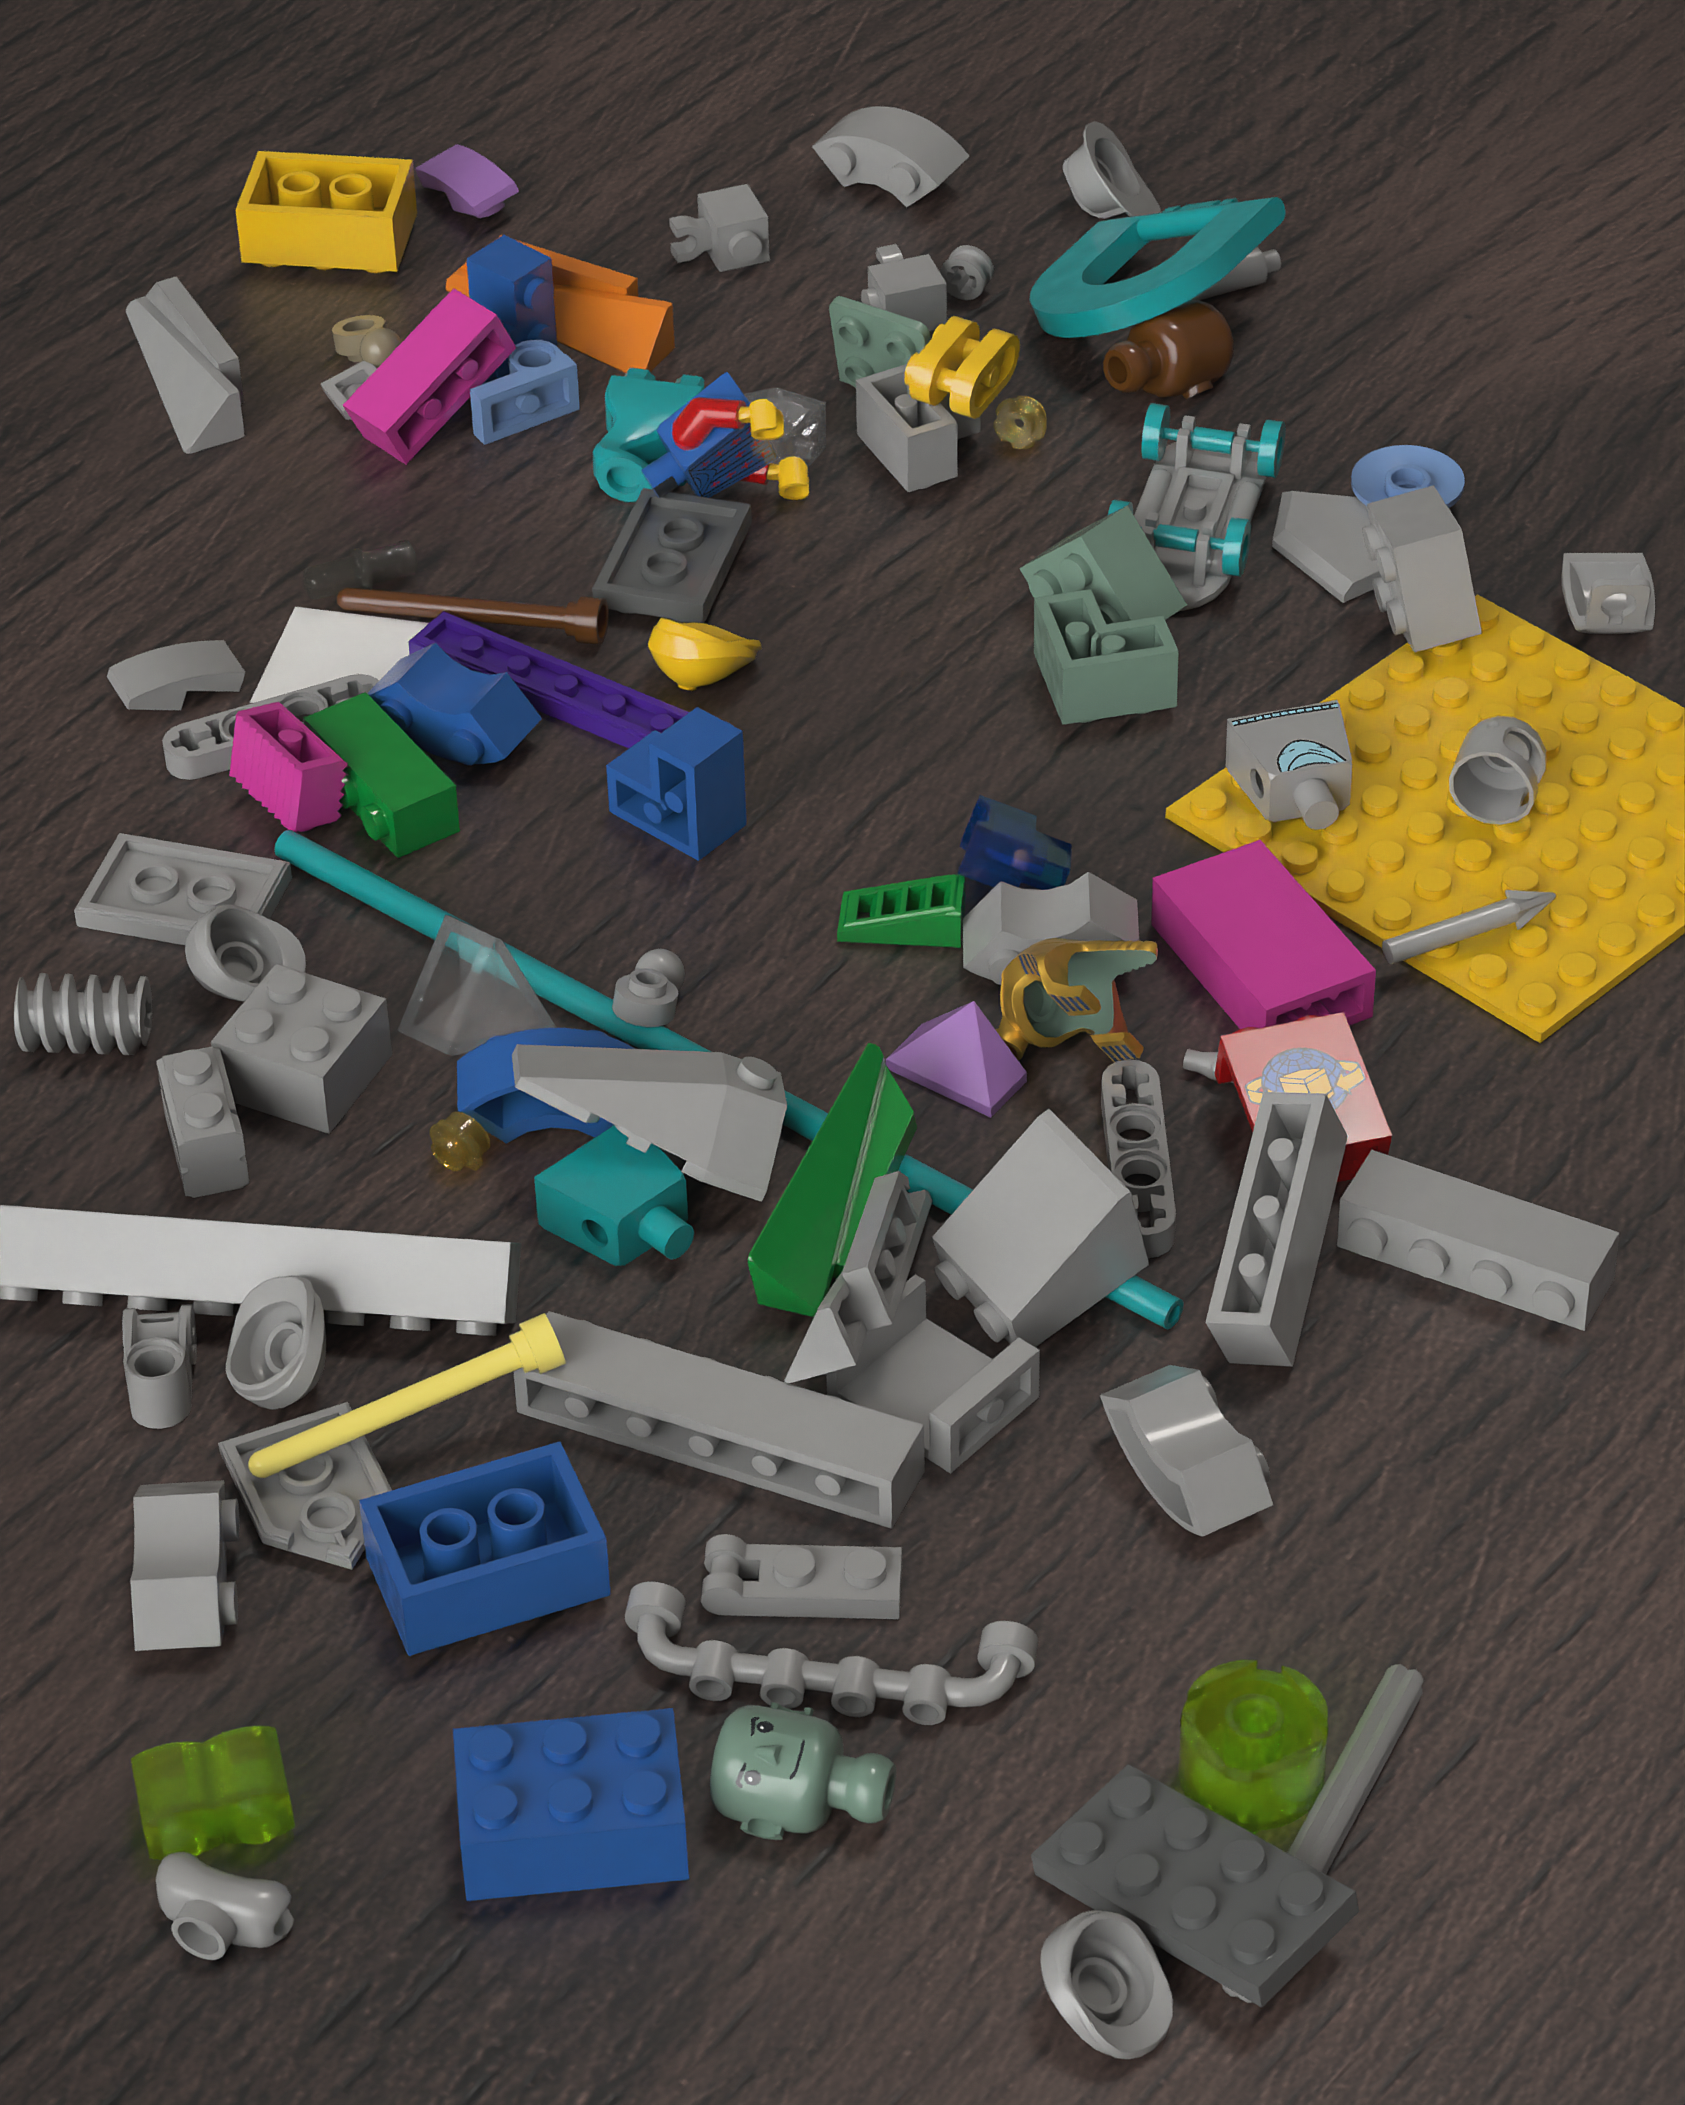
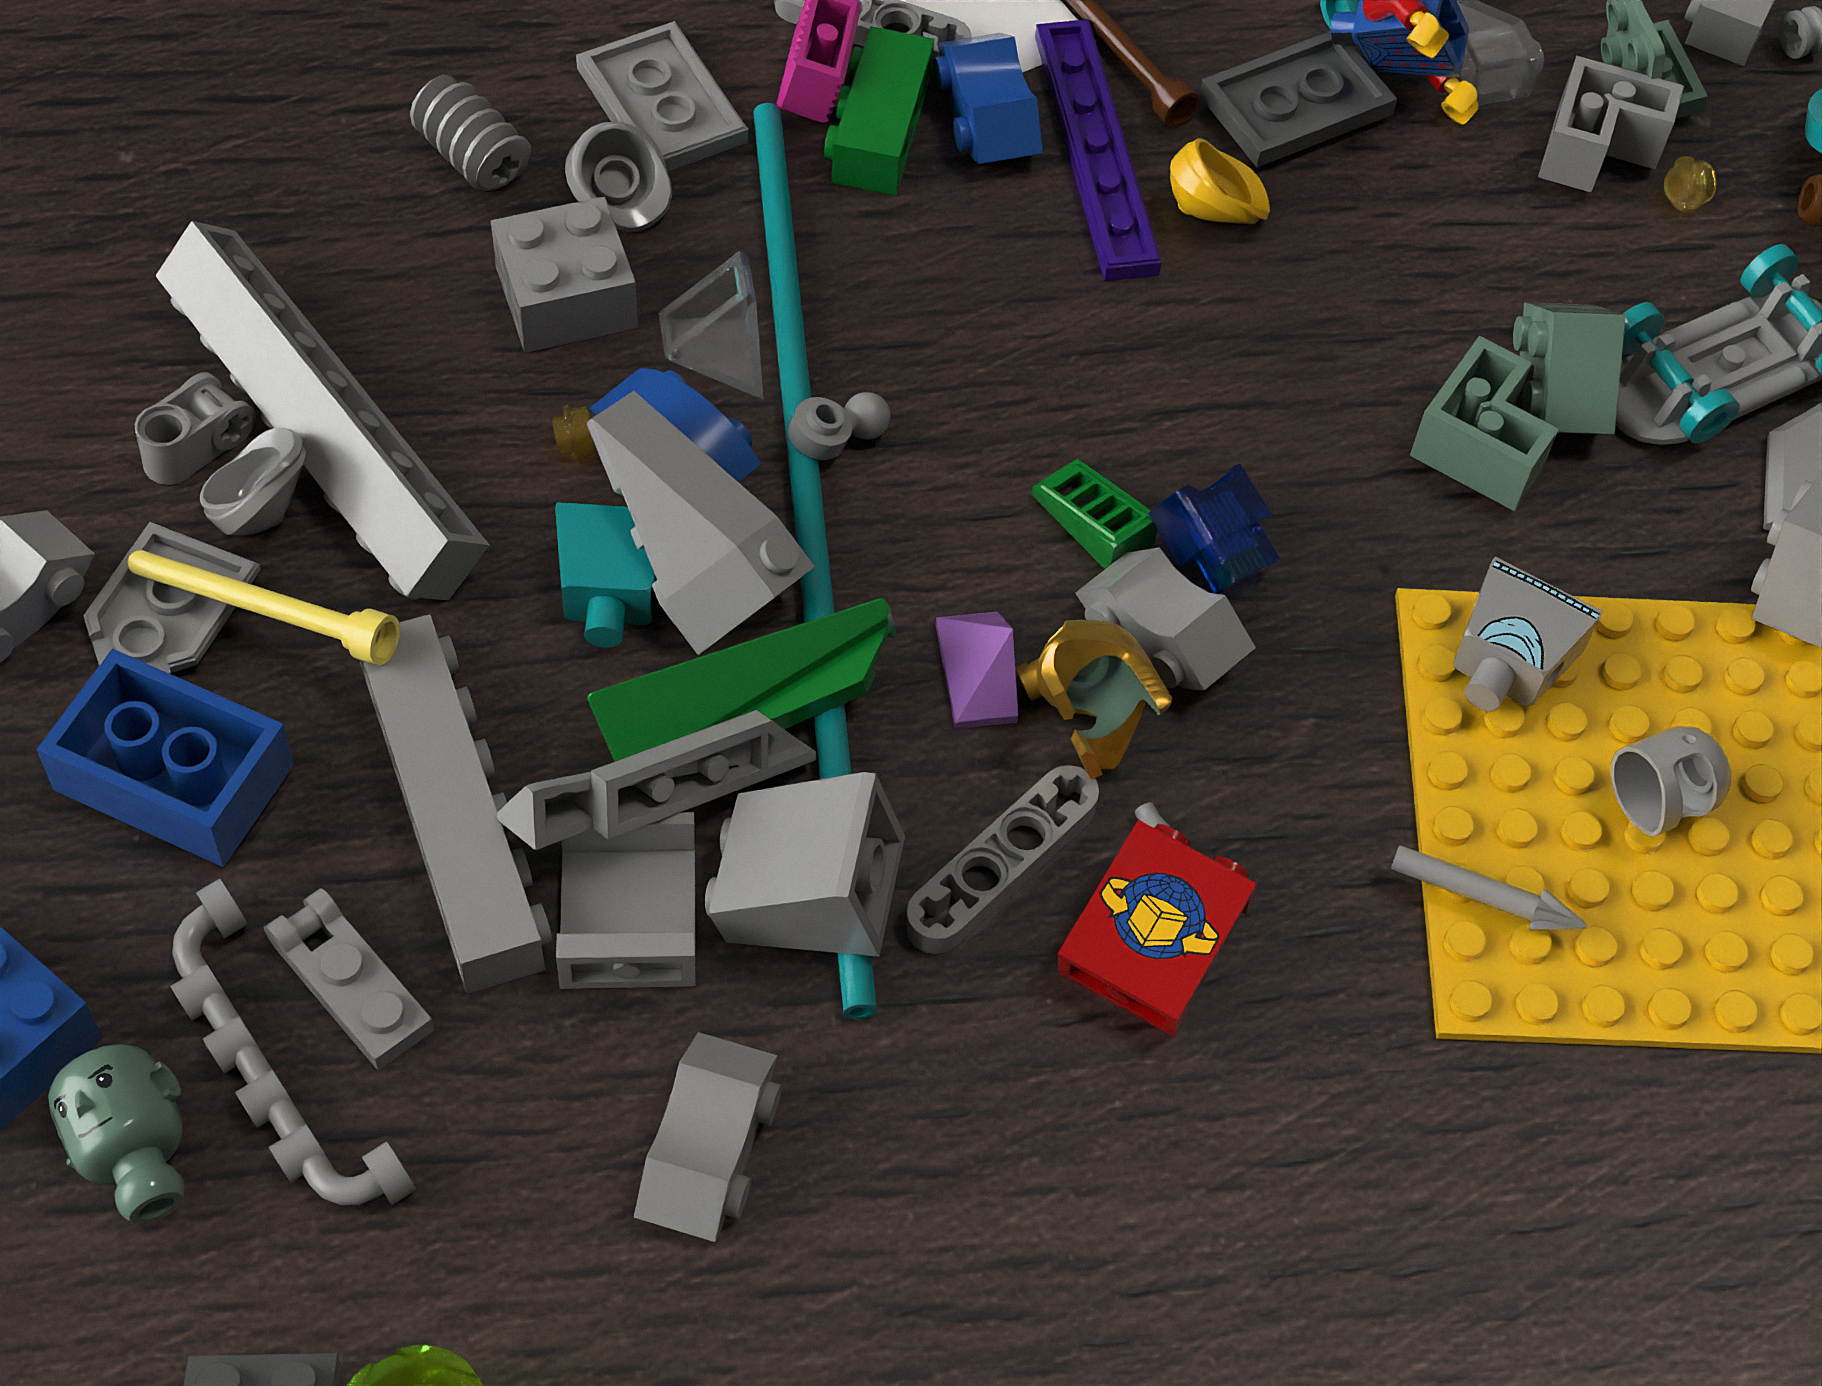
camera: 40 degrees right, 15 degrees up
(202, 1122) = (436, 275): light grey brick -> none
(683, 783) = (1059, 284): blue brick -> none
(962, 366) = (1656, 104): yellow brick -> none
(1260, 940) = (1308, 768): dark pink brick -> none
(1277, 1229) = (977, 1020): light grey brick -> none
(1478, 1239) = (1146, 1170): light grey brick -> none

